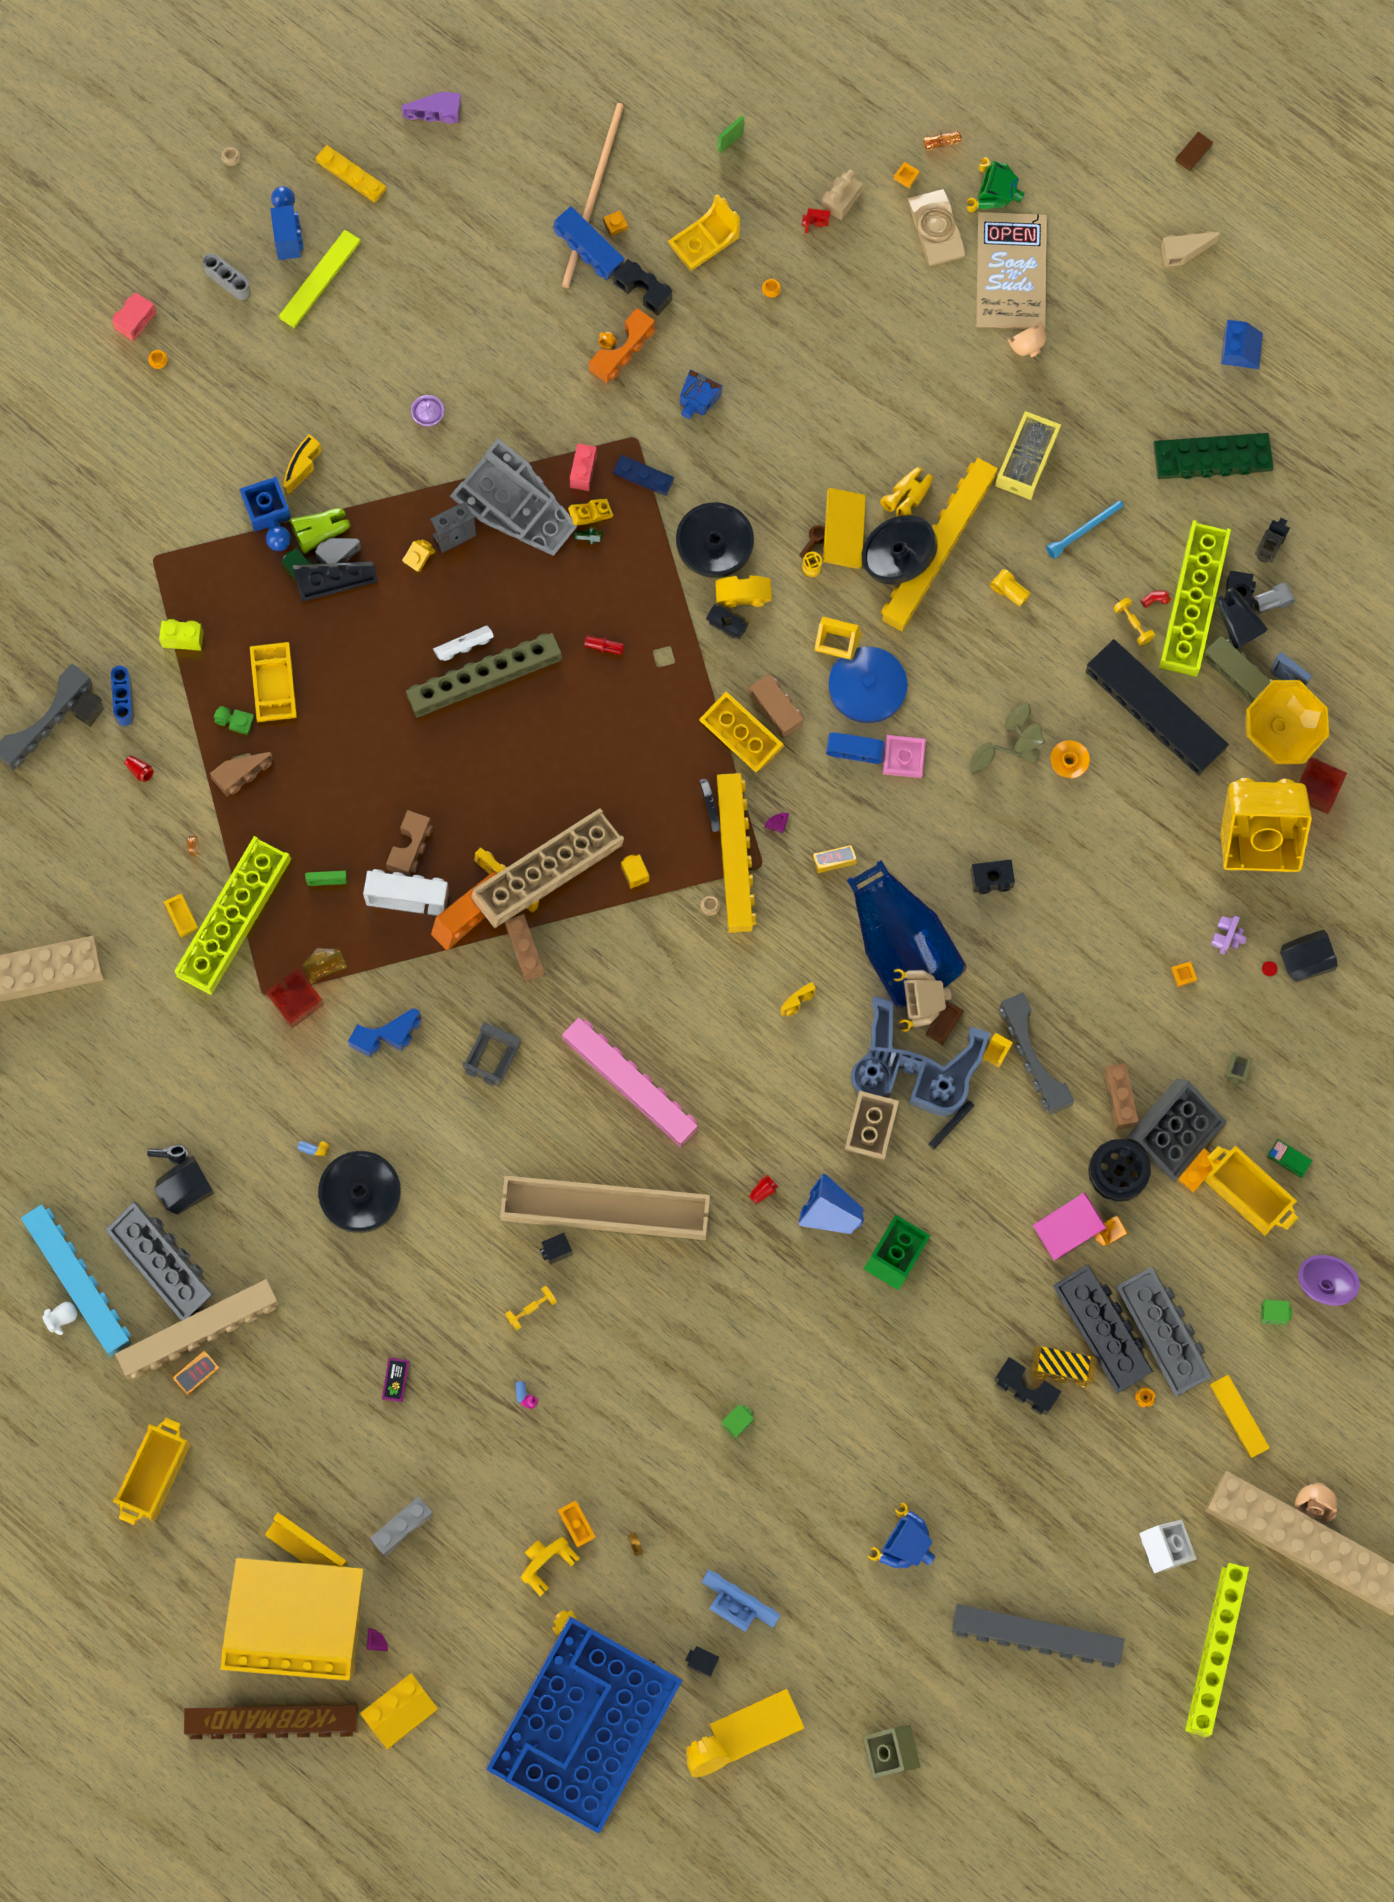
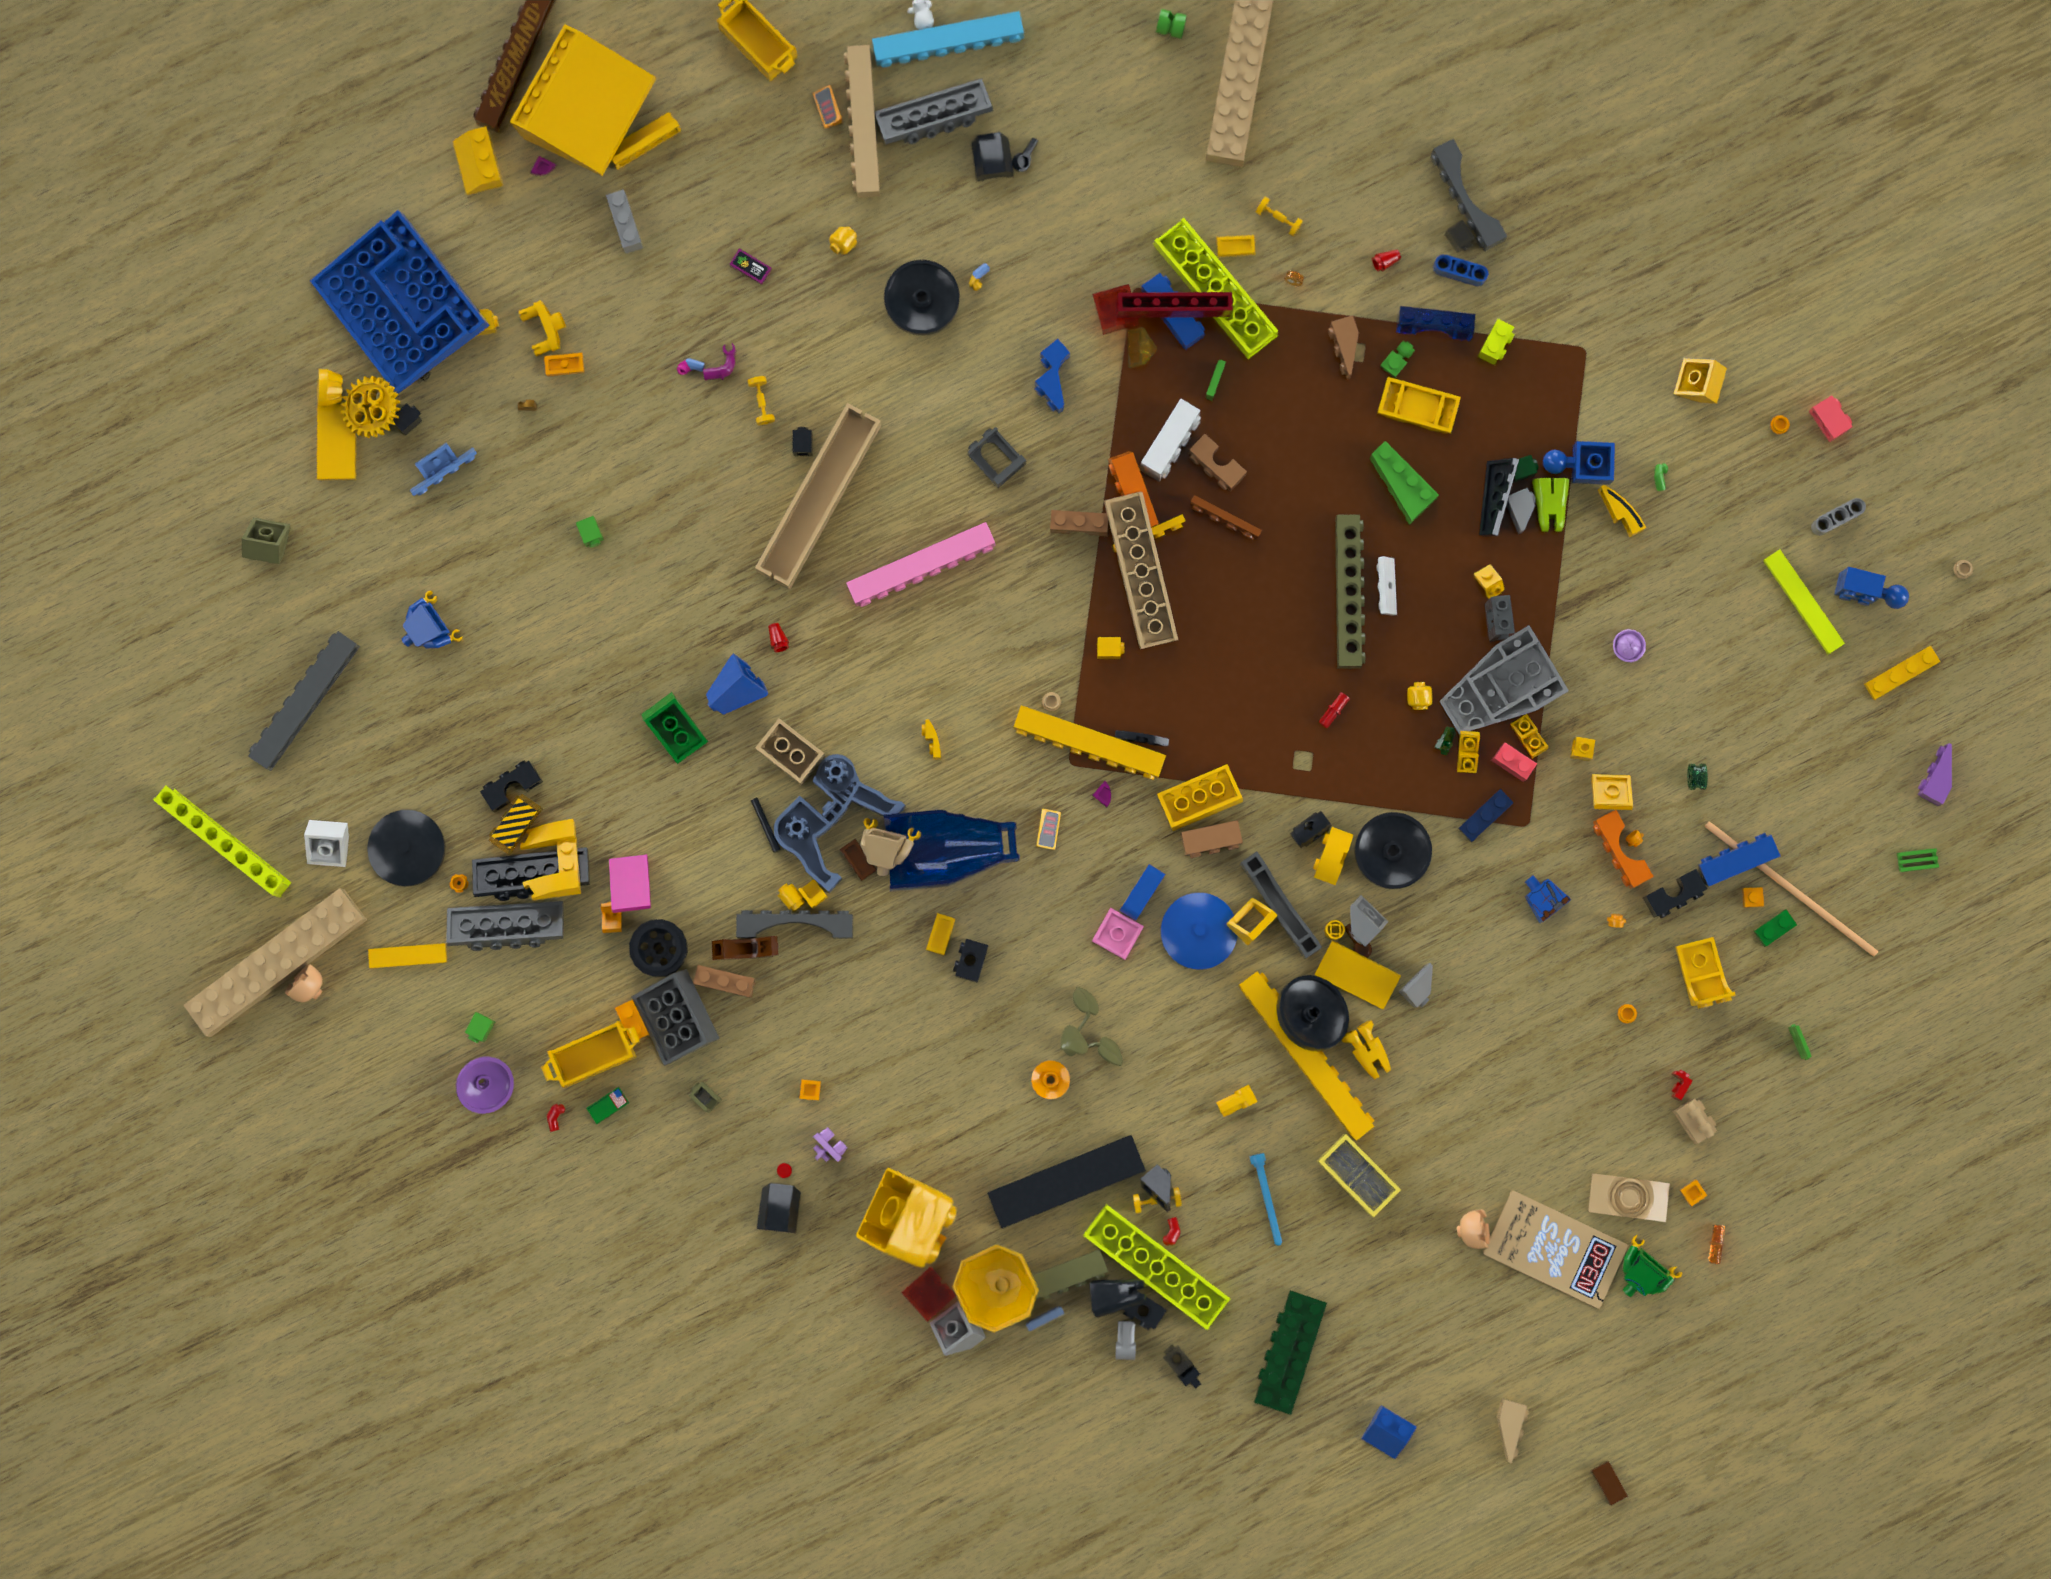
camera: 115 degrees right, 10 degrees up
(131, 903) = (1279, 216): none -> yellow wheel
(144, 442) = (1700, 380): none -> yellow slope
(180, 683) = (1456, 324): none -> clear blue arch
(252, 444) = (1658, 476): none -> bright green arm
(271, 937) = (1174, 304): none -> dark red brick
(273, 945) = (1183, 328): none -> blue brick
(331, 1296) = (843, 240): none -> yellow head
(356, 666) = (1403, 482): none -> bright green wedge
(460, 823) = (1231, 521): none -> dark orange plate
(511, 88) = (1934, 858): none -> bright green tile
(516, 1360) = (724, 370): none -> magenta piece
(526, 306) = (1697, 776): none -> clear green wheel
(543, 413) = (1582, 749): none -> yellow brick
(552, 464) = (1529, 736): none -> yellow slope
(557, 573) = (1419, 696): none -> yellow head
(573, 373) = (1612, 792): none -> yellow tile
(635, 194) = (1775, 928): none -> green plate
(690, 327) = (1616, 920): none -> light orange plate
(698, 1684) = (370, 407): none -> yellow gear
(792, 535) = (1365, 921): none -> light grey slope
(822, 604) = (1278, 902): none -> dark grey arch
(829, 470) = (1419, 987): none -> light grey slope
(980, 917) = (940, 934): none -> yellow tile
(1010, 1068) = (791, 897): none -> yellow brick
(1085, 1099) = (745, 948): none -> reddish brown arch
(1095, 1282) = (568, 879): none -> yellow wedge
(1122, 621) = (1158, 1186): none -> slope
(1135, 1466) = (406, 848): none -> black dish
(1324, 1205) = (552, 1116): none -> red arm
(1340, 748) = (955, 1332): none -> light grey slope

